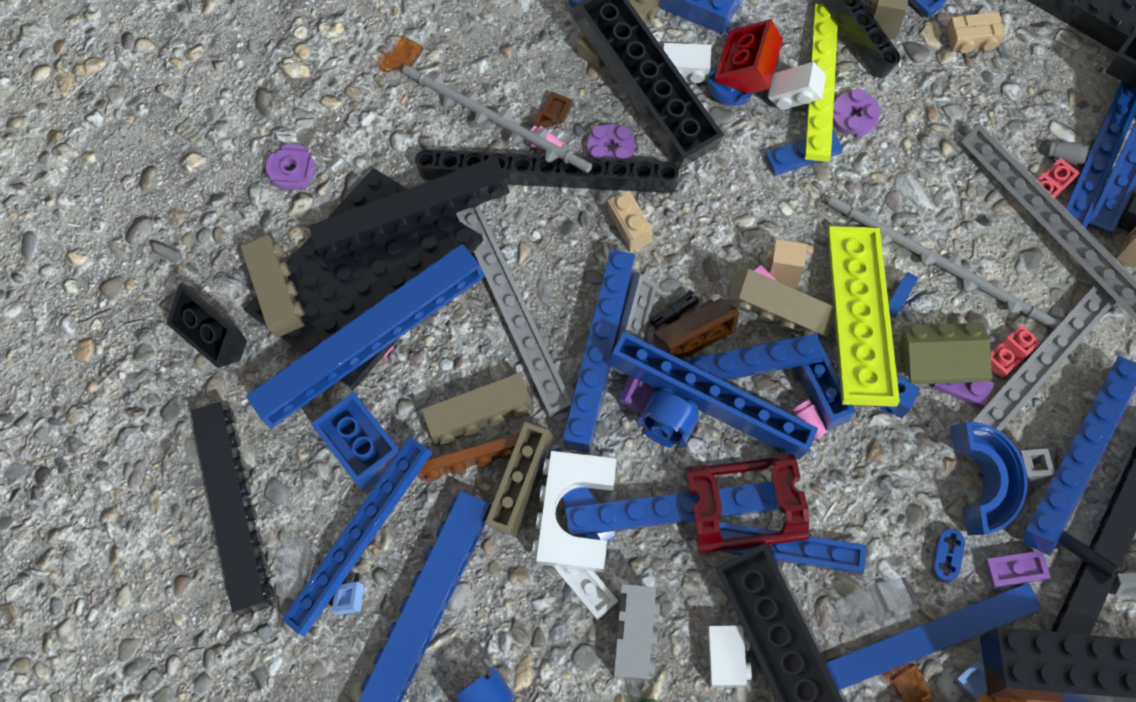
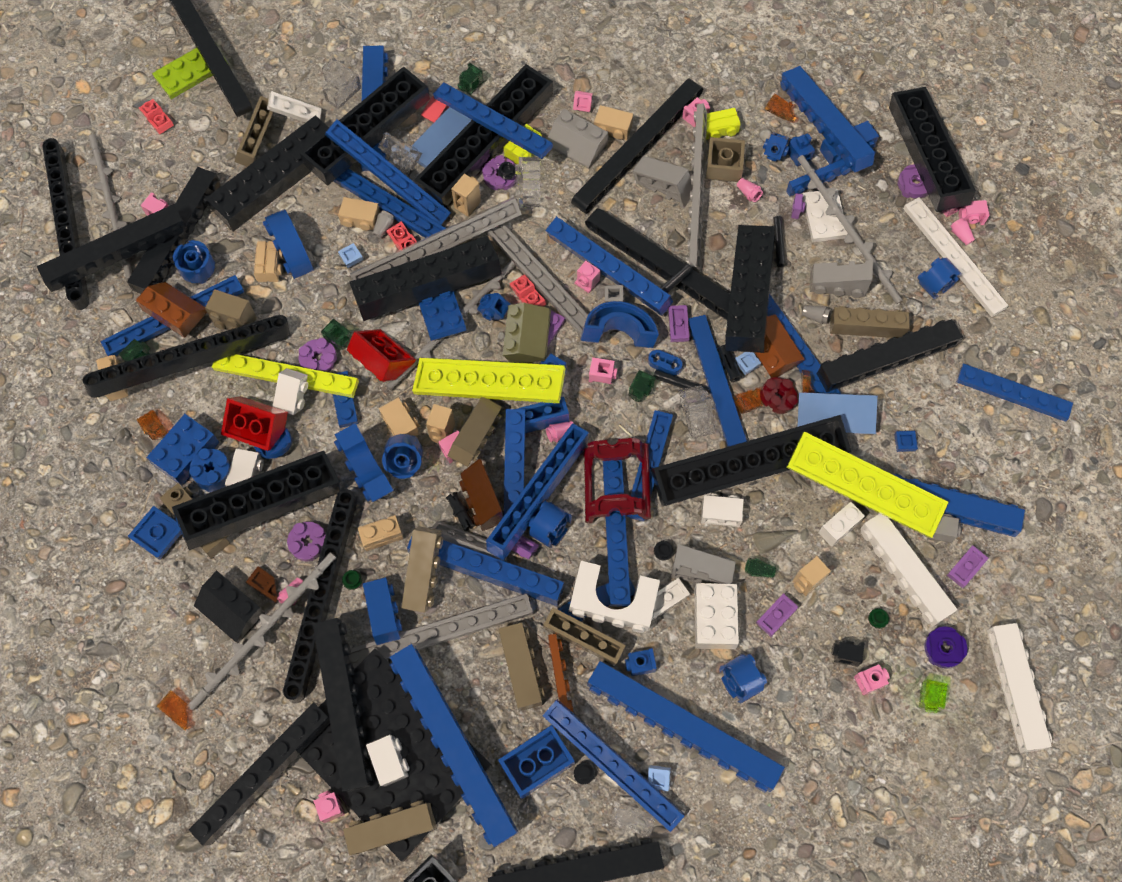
camera: 90 degrees left, 0 degrees up
(294, 179) = (276, 826): medium lavender plate -> none
(298, 221) = (328, 806): none -> bright pink brick
(330, 145) = (260, 775): none -> black brick
(346, 268) = (388, 760): none -> white brick
(350, 502) = (584, 773): none -> black plate
(497, 570) = (649, 662): none -> blue brick
(522, 81) = (227, 607): none -> black slope
(529, 237) = (382, 611): none -> blue brick
(568, 658) = (716, 616): none -> white brick
(569, 202) = (352, 579): none -> dark green plate
(584, 268) = (421, 569): none -> dark tan brick
(658, 577) = (663, 550): none -> black plate
(681, 24) = (210, 469): none -> blue brick
(718, 185) = (362, 463): none -> blue brick
(733, 225) = (400, 446): none -> blue brick
(784, 217) = (397, 418): none -> tan brick
(873, 179) = (380, 354): none -> red slope
(889, 126) = (333, 331): none -> clear green brick
(900, 522) = (641, 386): none -> clear green brick
(902, 293) = (473, 351): blue beam -> none
(916, 457) = (599, 366): none -> bright pink brick
(920, 578) = (676, 381): none -> black piece
(951, 244) = (442, 315): none -> blue plate
(961, 656) = (729, 363): none -> black pin
(980, 312) = (493, 306): none -> blue brick
(1000, 216) = (425, 278): none -> black brick
(1004, 42) = (288, 241): none -> blue brick
(1010, 123) = (350, 255): none -> light blue plate
(1060, 428) = (587, 277): none -> bright pink brick
(1076, 119) = (358, 213): none -> tan brick

